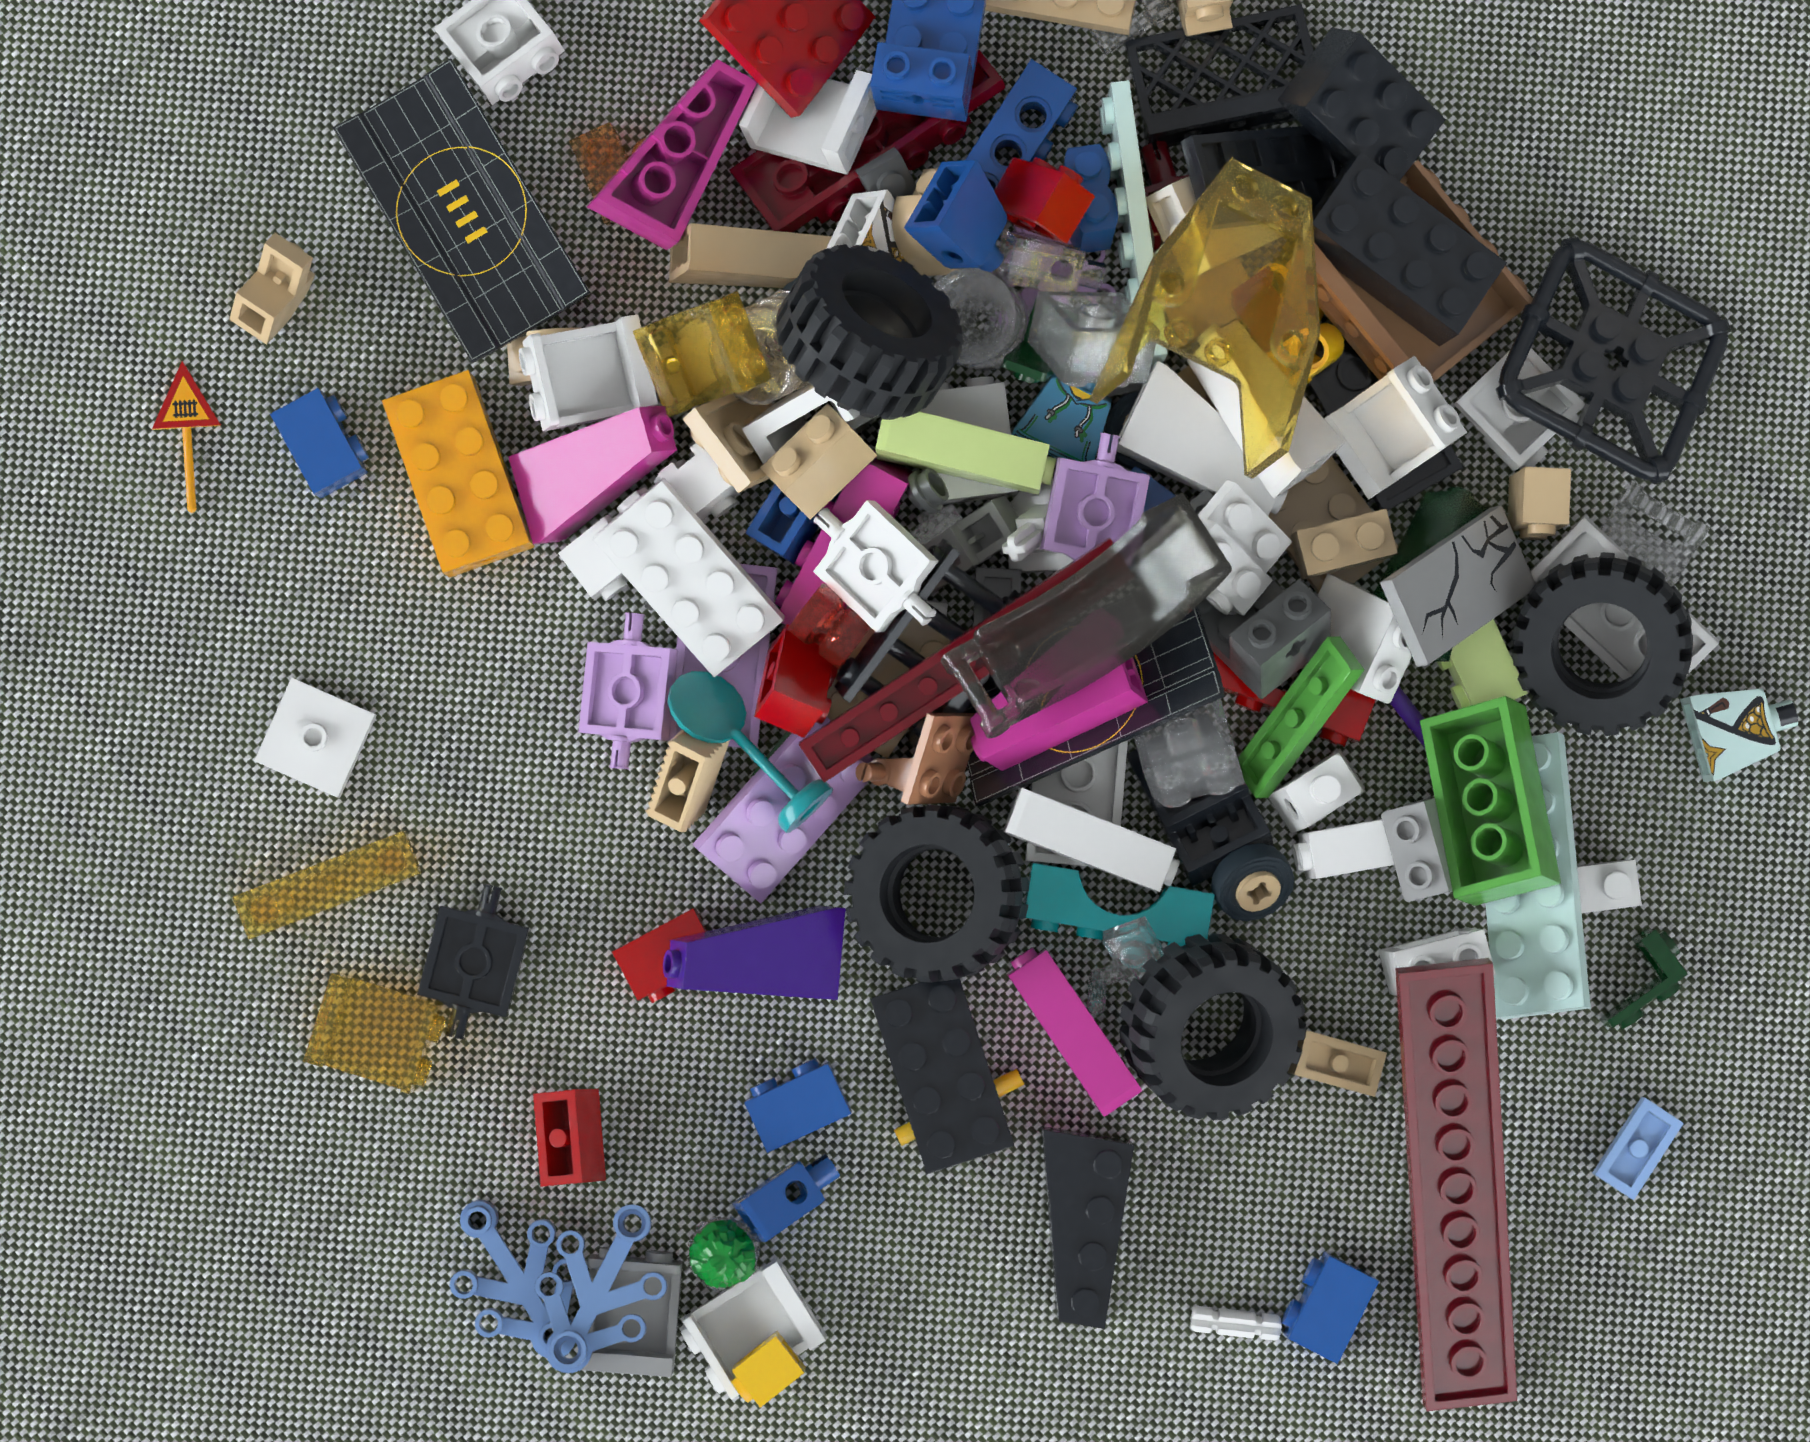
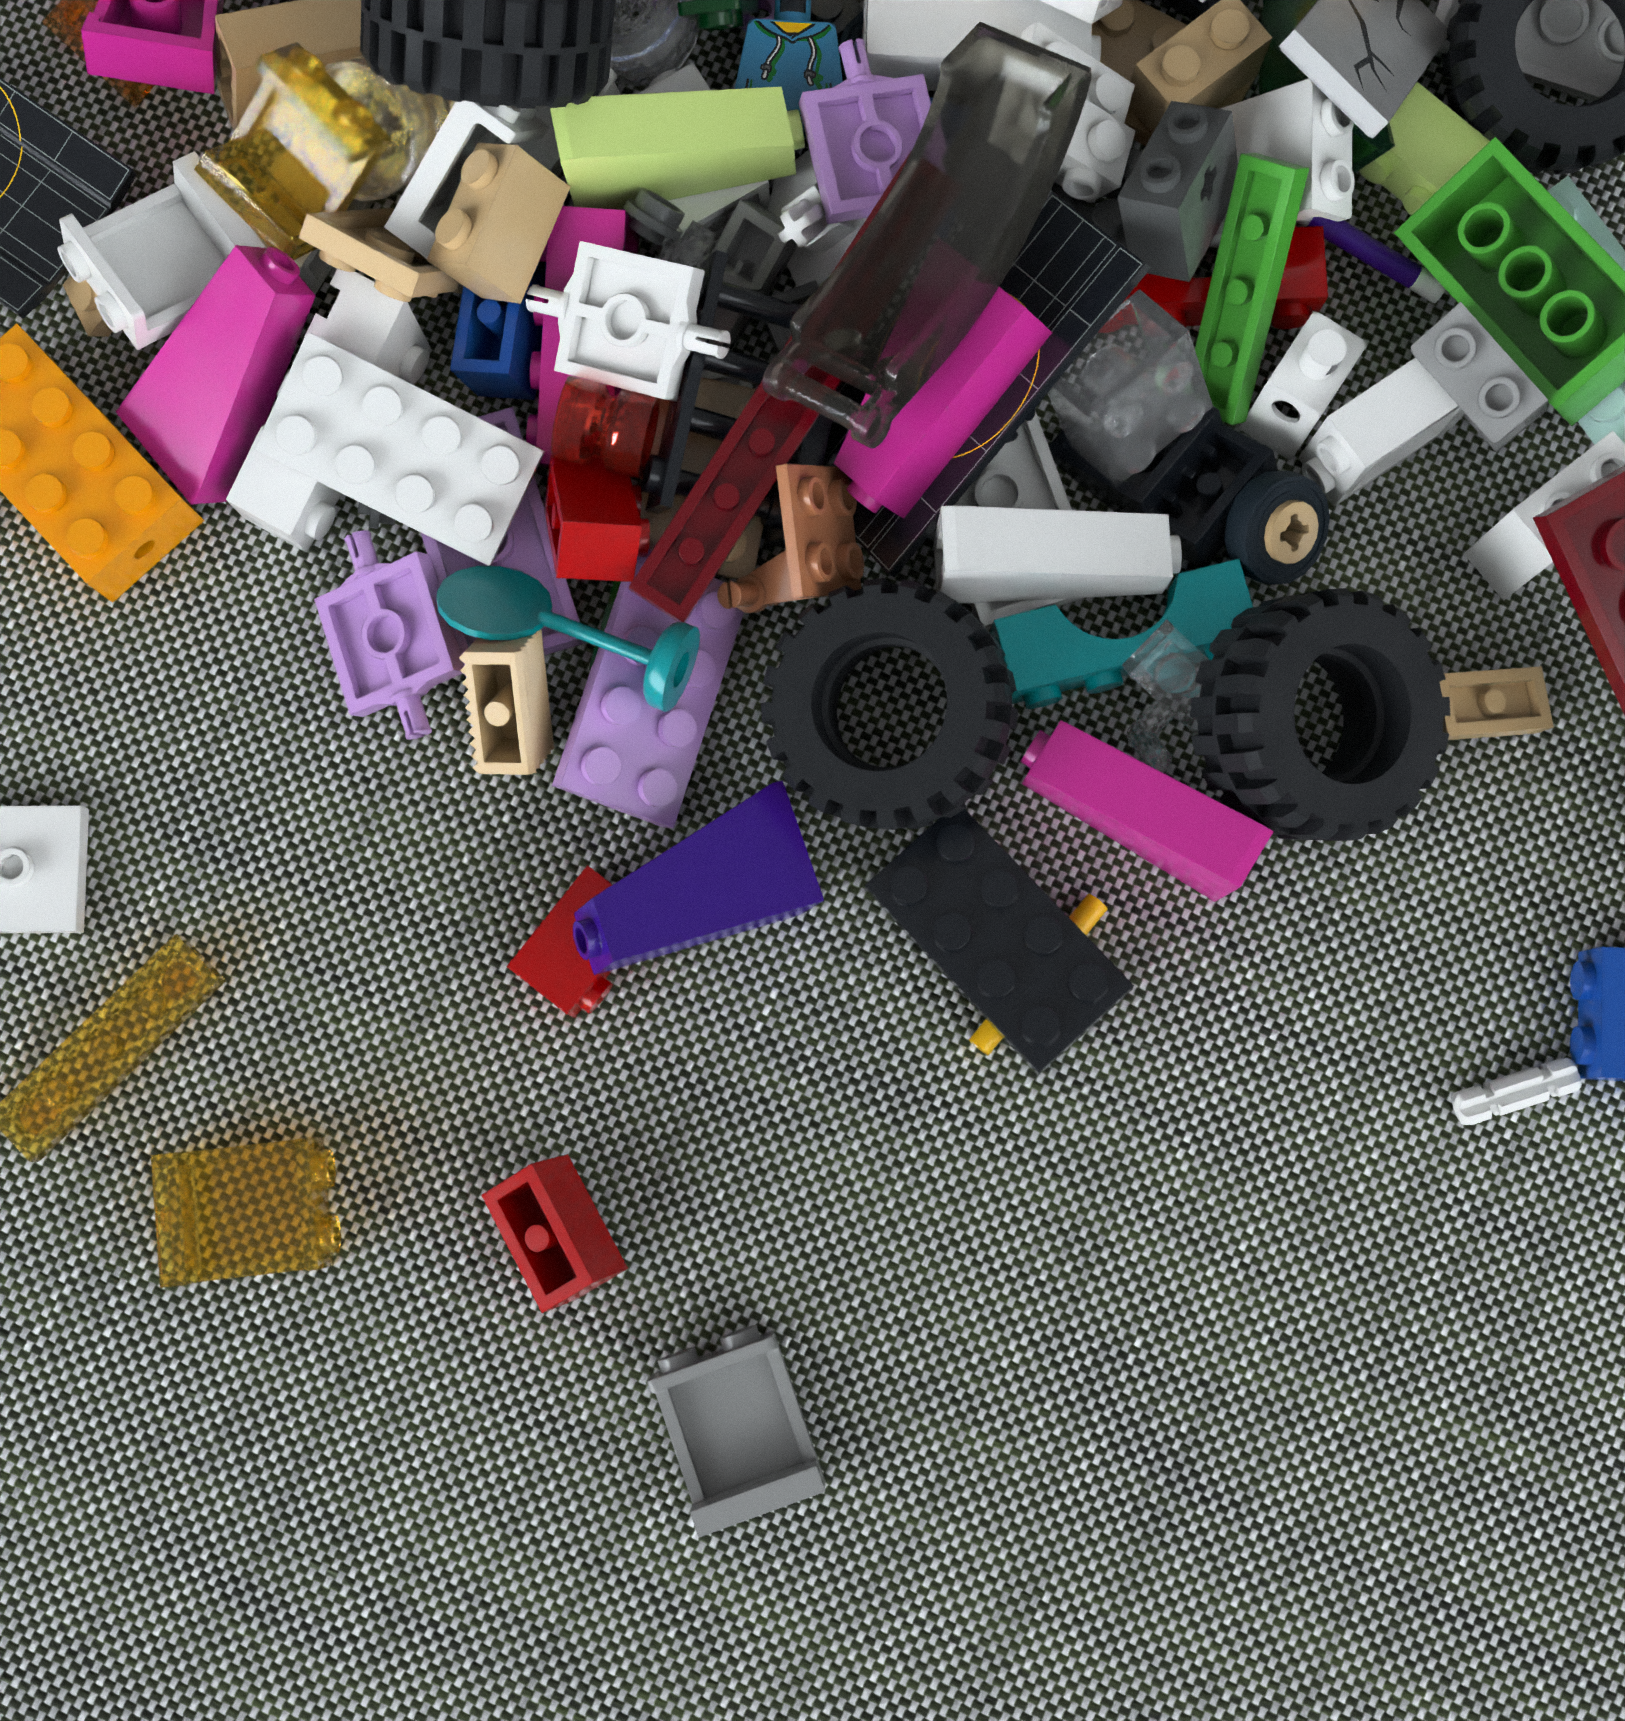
camera: 20 degrees left, 5 degrees down
(473, 961) = (337, 1061): black plate -> none
(519, 1285) = (578, 1458): medium blue plant -> none
(596, 1295) = (677, 1427): medium blue plant -> none
(723, 1252) = (821, 1294): green piece -> none
(745, 1317) = (902, 1379): white panel -> none
(767, 1207) = (854, 1206): blue torso -> none
(767, 1370) = (947, 1425): yellow brick -> none
(797, 1105) = (832, 1059): blue brick -> none
(1085, 1214) = (1267, 1042): black wedge -> none

